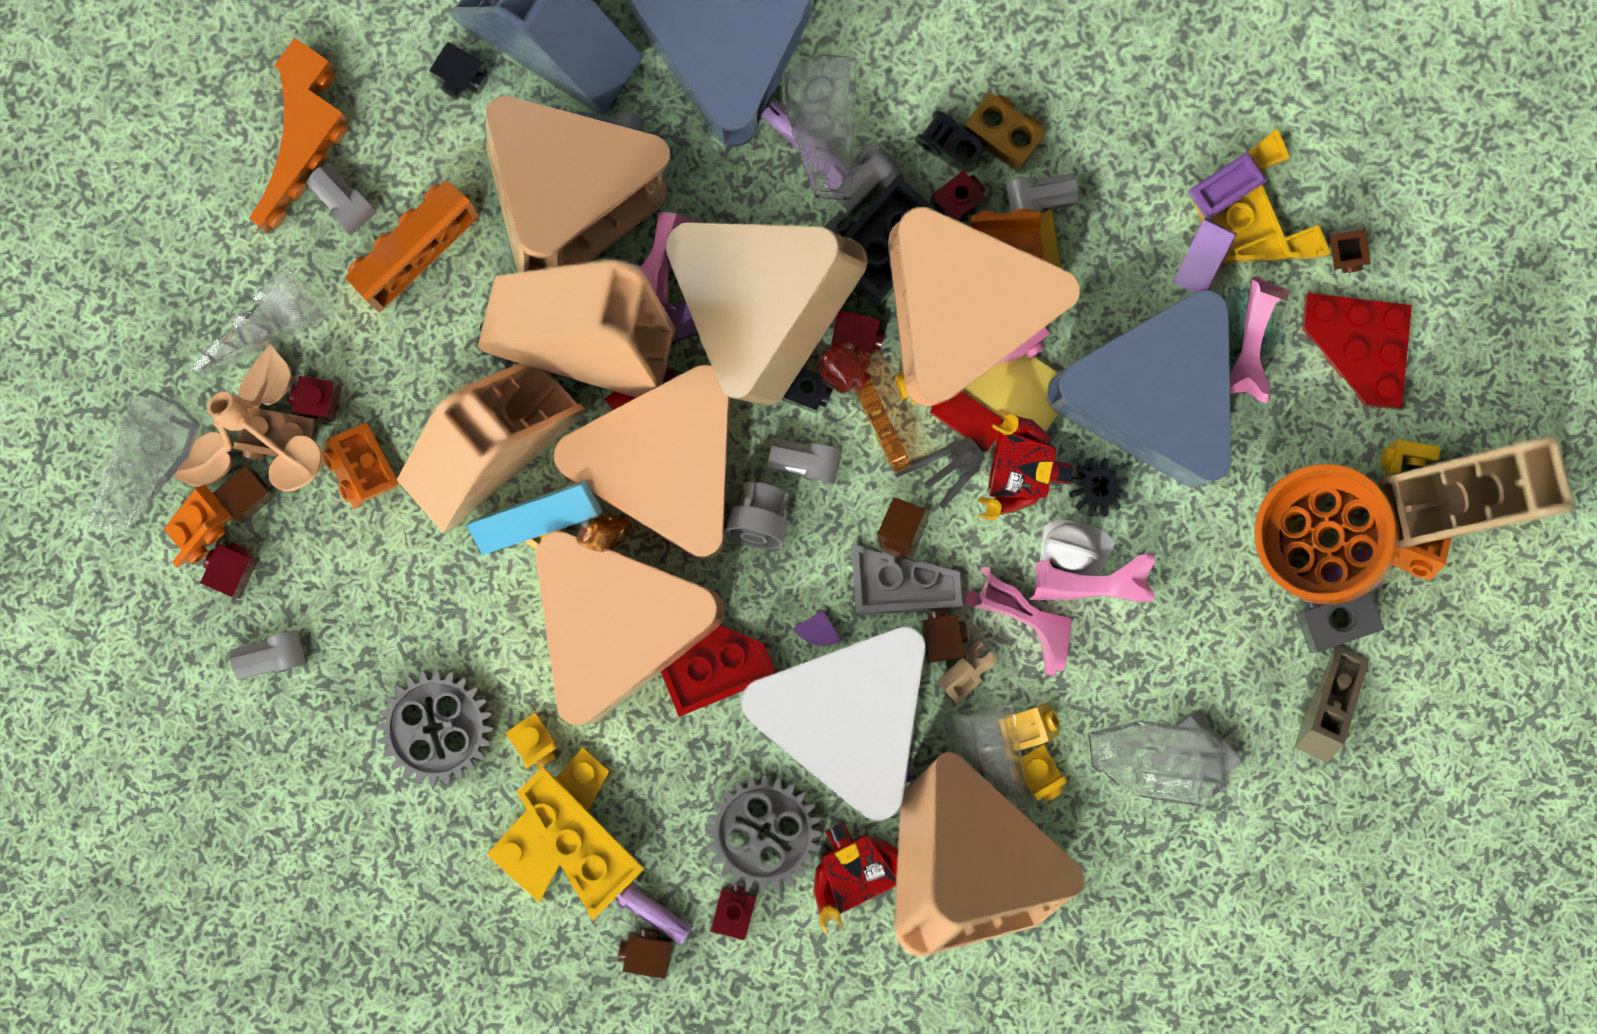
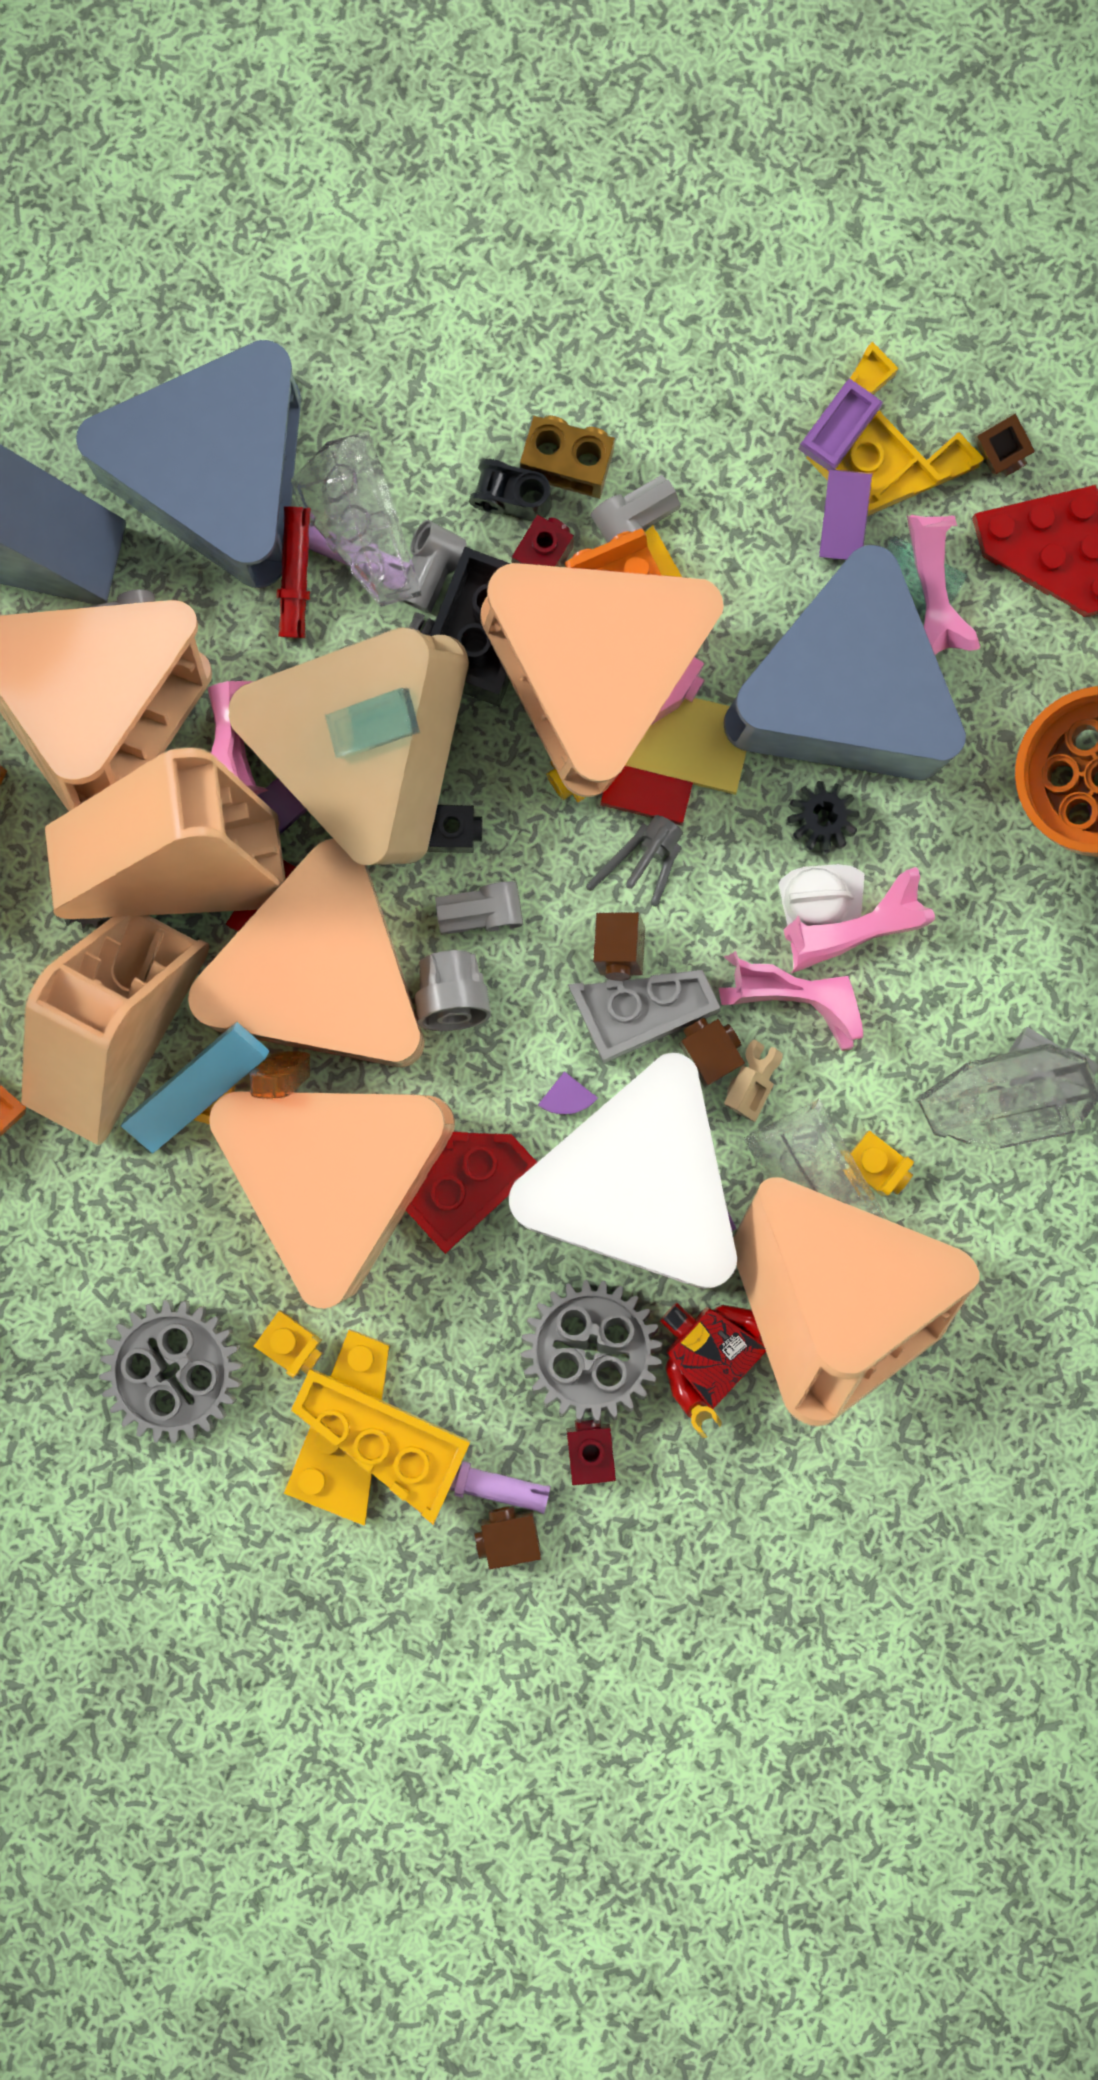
camera: 20 degrees left, 0 degrees up
(755, 152) = (294, 572): none -> red pin
(774, 291) = (372, 723): none -> clear light blue tile
(845, 367) = (486, 786): clear red head -> none
(858, 330) = (486, 747): dark red brick -> none
(884, 429) = (543, 829): clear orange beam -> none
(1021, 467) = (728, 825): torso -> none
(1036, 726) = (854, 1112): yellow bracket -> none

